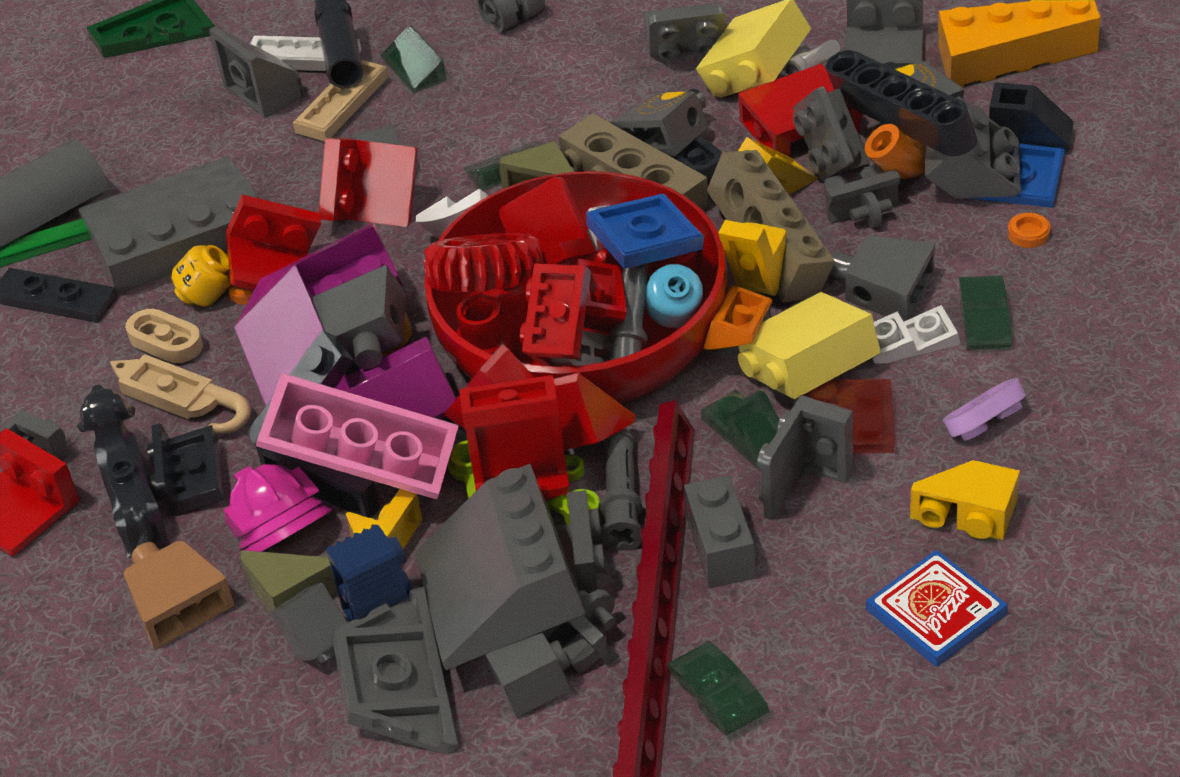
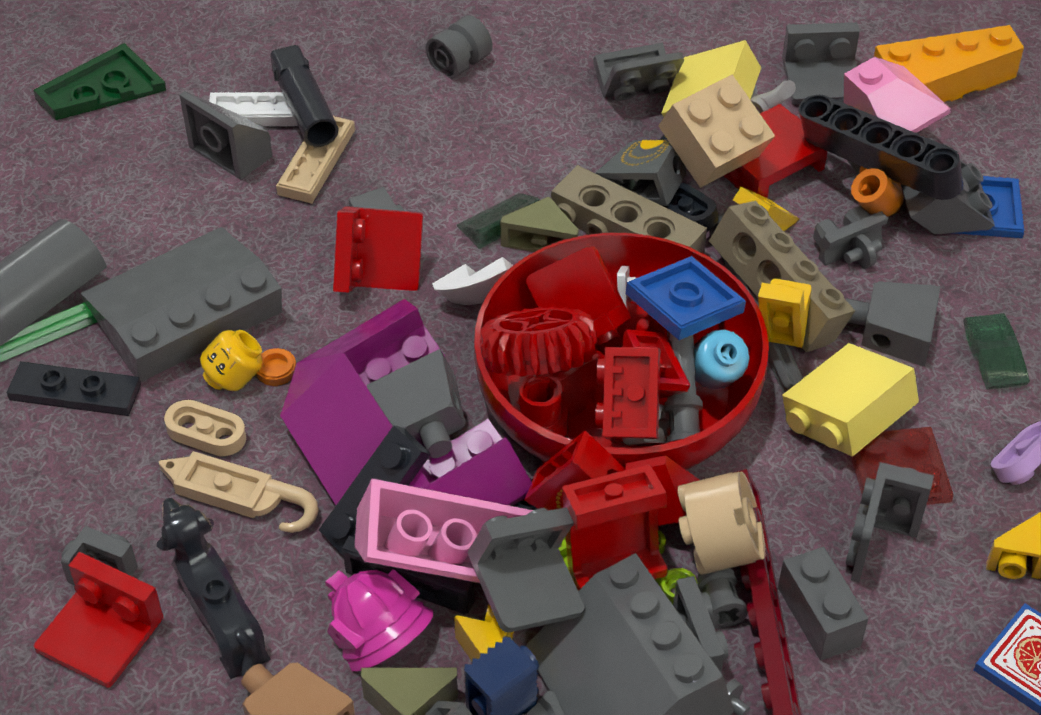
camera: 15 degrees left, 5 degrees up
(186, 469) = (272, 576): black bracket -> none
(267, 238) = (292, 320): red bracket -> none
(414, 61) = (378, 112): clear green slope -> none
(414, 466) = (525, 570): none -> dark grey bracket
(623, 441) = (721, 522): none -> tan brick
(732, 81) = (716, 130): none -> tan brick
(737, 319) = (784, 379): orange slope -> none
(743, 422) = (812, 487): clear green slope -> none
(828, 133) = (809, 178): dark grey bracket -> none
(914, 336) = (943, 377): white slope -> none
(935, 55) = (892, 95): none -> bright pink slope
(1028, 230) = (1009, 263): orange tile -> none
(1030, 116) = (985, 147): black slope -> none

